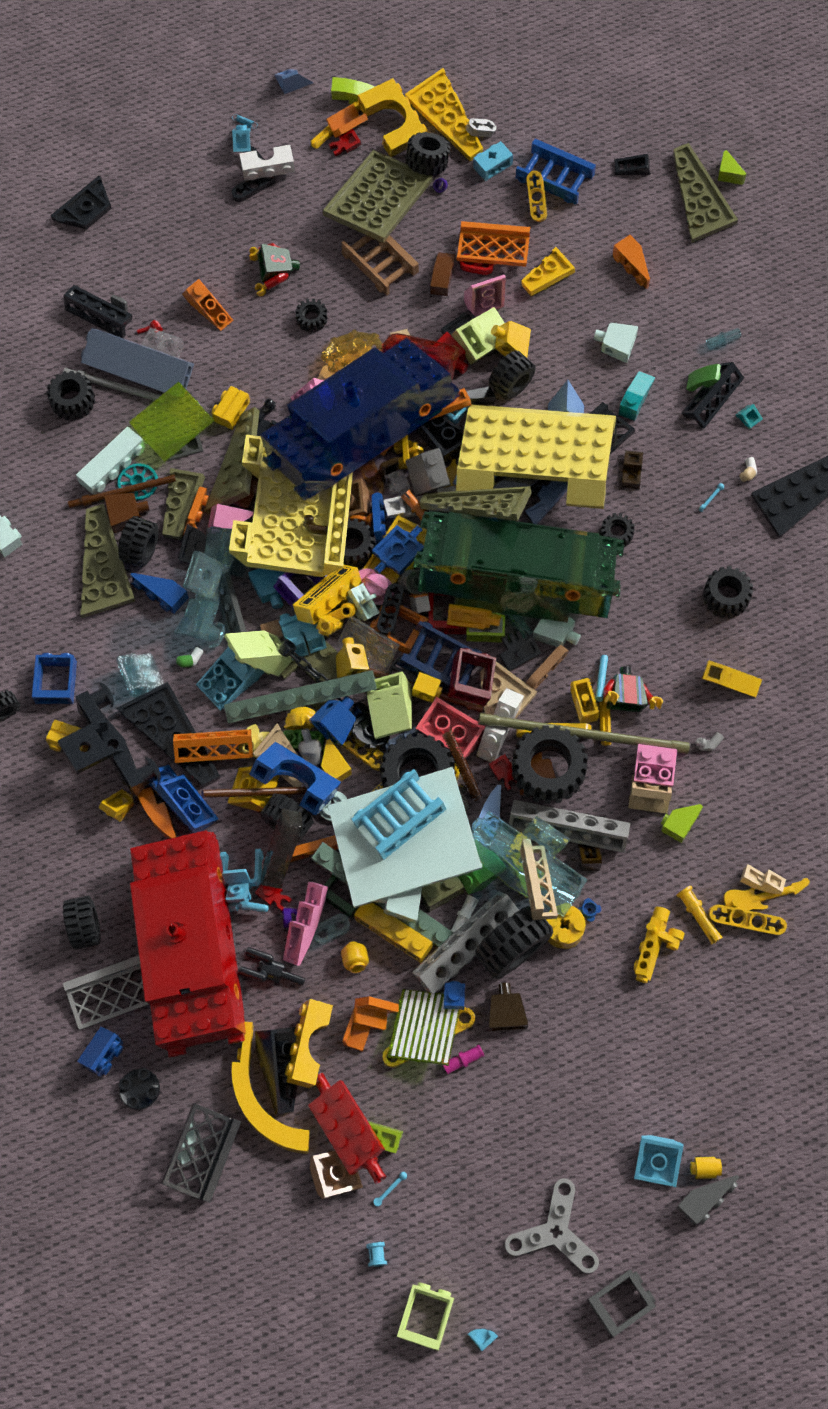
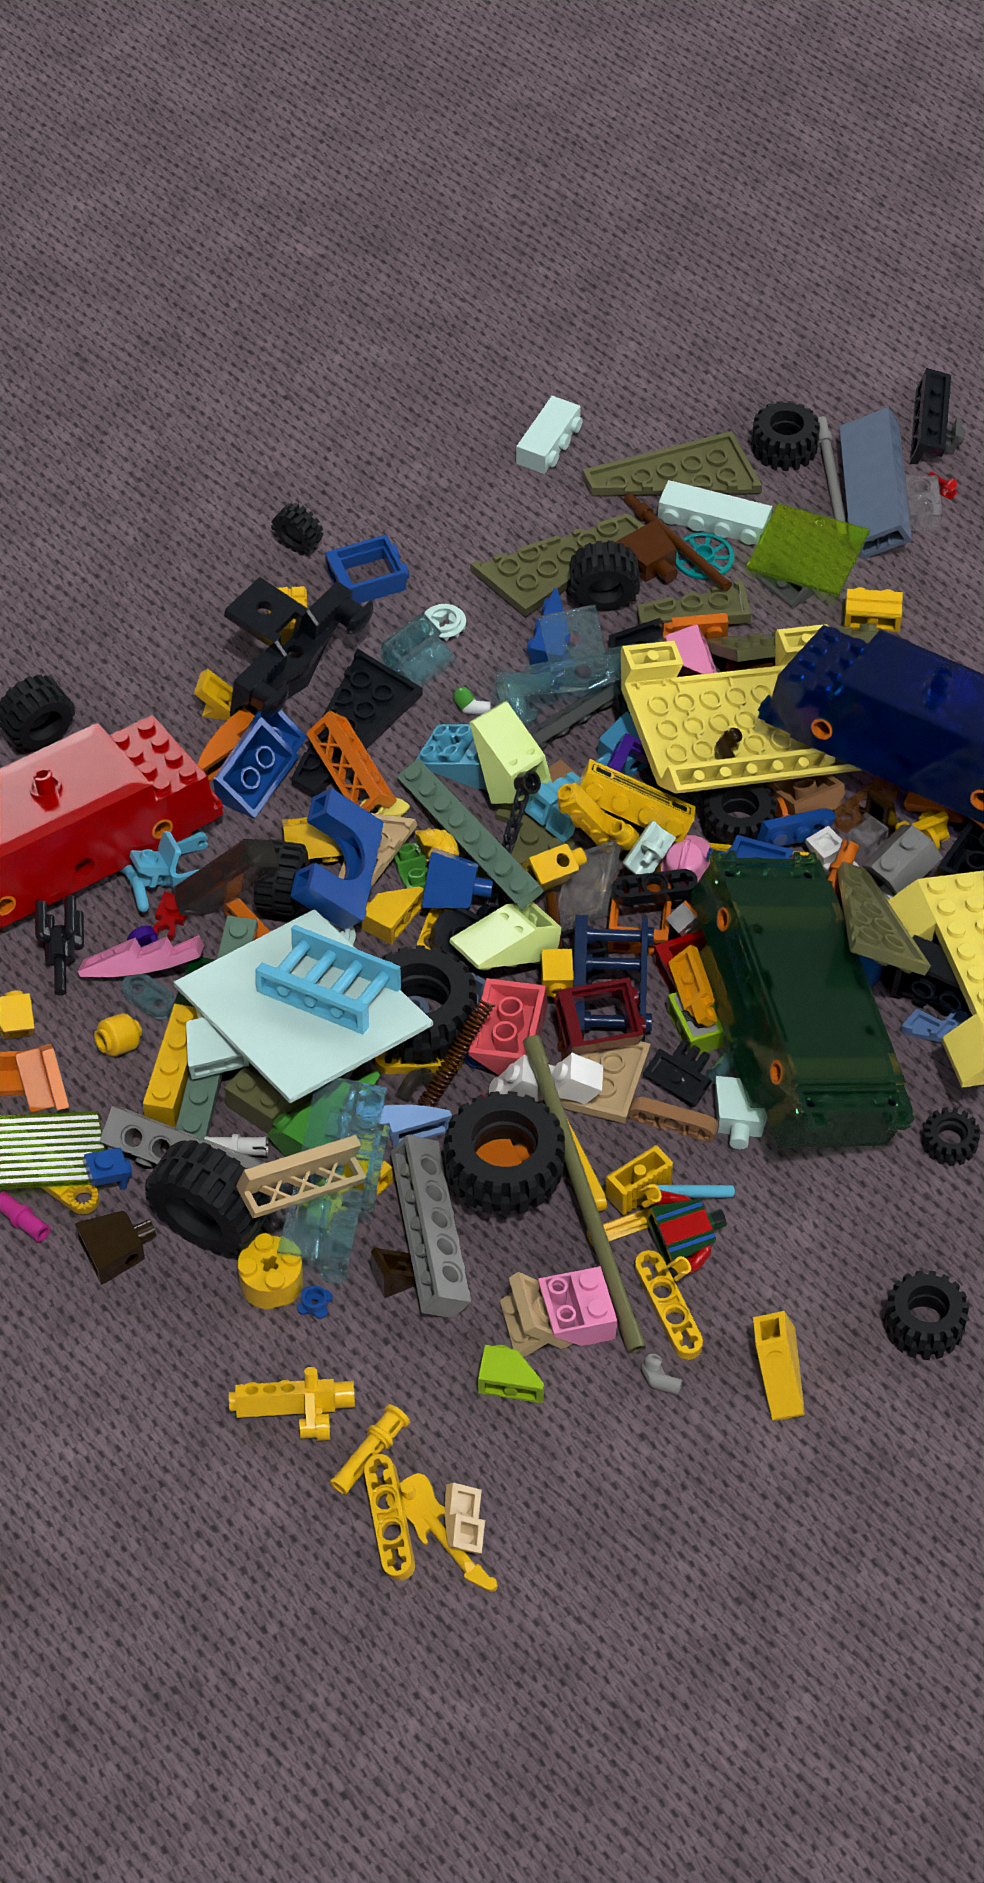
camera: 65 degrees right, 15 degrees down
(66, 454) = (706, 463): none -> olive wing
(117, 641) = (455, 616): none -> light aqua gear
(253, 792) = (289, 809): reddish brown bar -> none
(310, 748) = (399, 873): light grey piece -> none
(665, 720) = (668, 1305): none -> yellow beam

